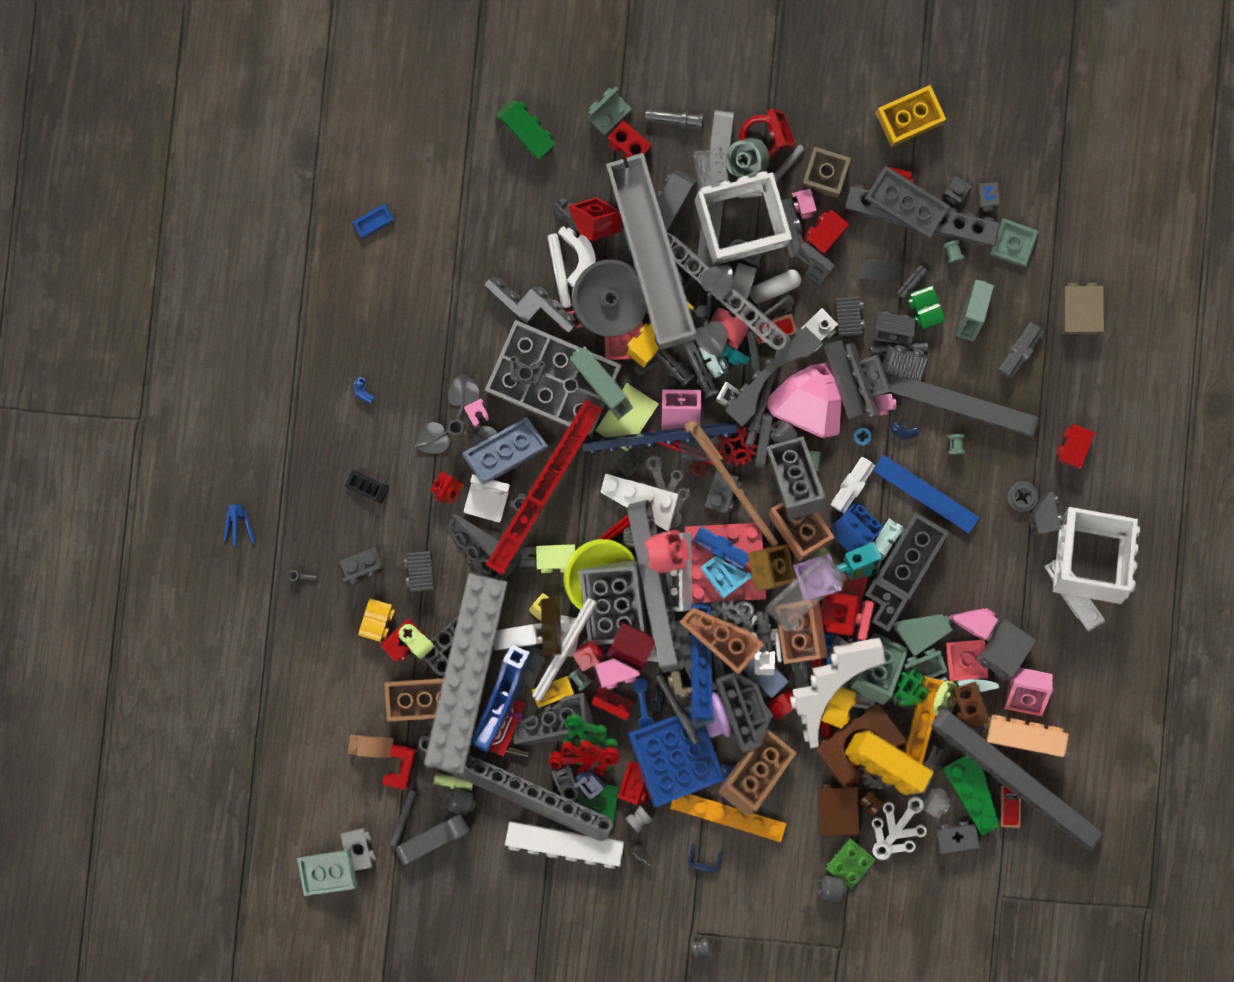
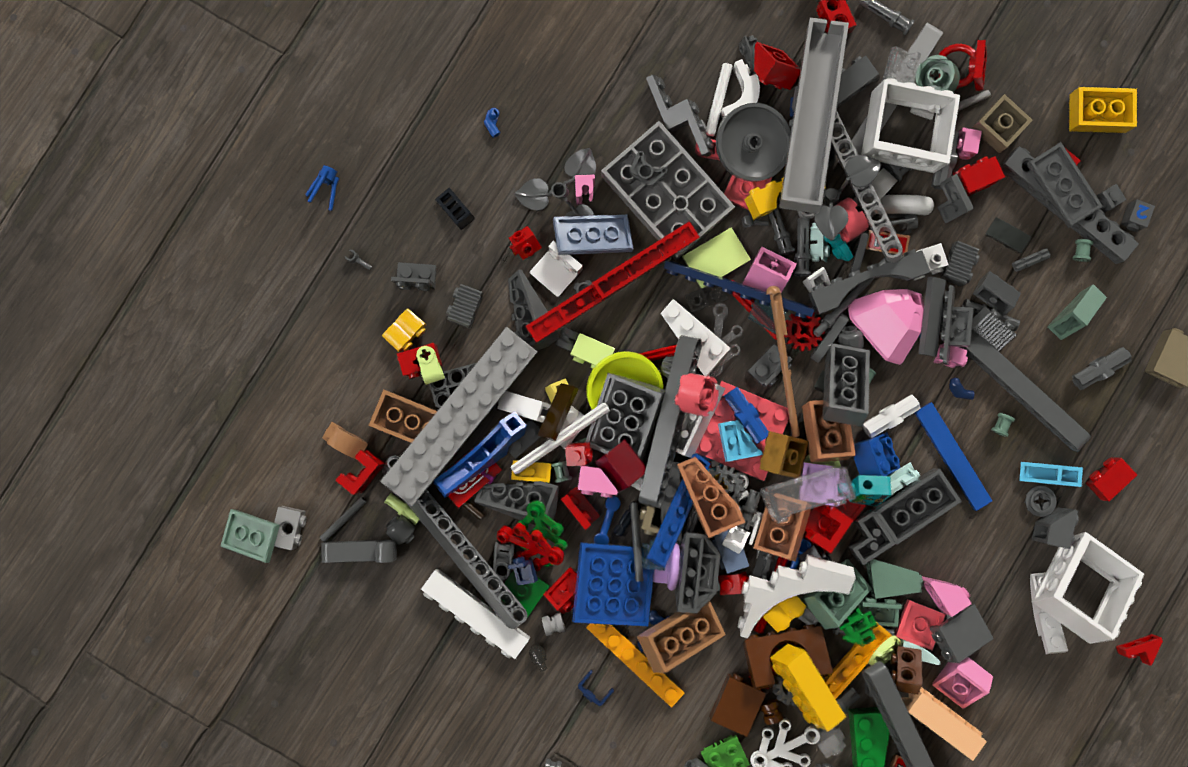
camera: 30 degrees right, 0 degrees up
(601, 382) = (710, 213): sand green slope -> none
(702, 471) = (754, 337): clear red plate -> none
(857, 432) = (922, 382): dark azure bush -> none
(863, 620) = (846, 543): coral plate -> none
(926, 308) = (1034, 289): green brick -> none
(1014, 242) = (1140, 269): sand green tile -> none
(1020, 468) = (1051, 474): none -> medium azure slope
(1176, 581) = (1145, 647): none -> red slope

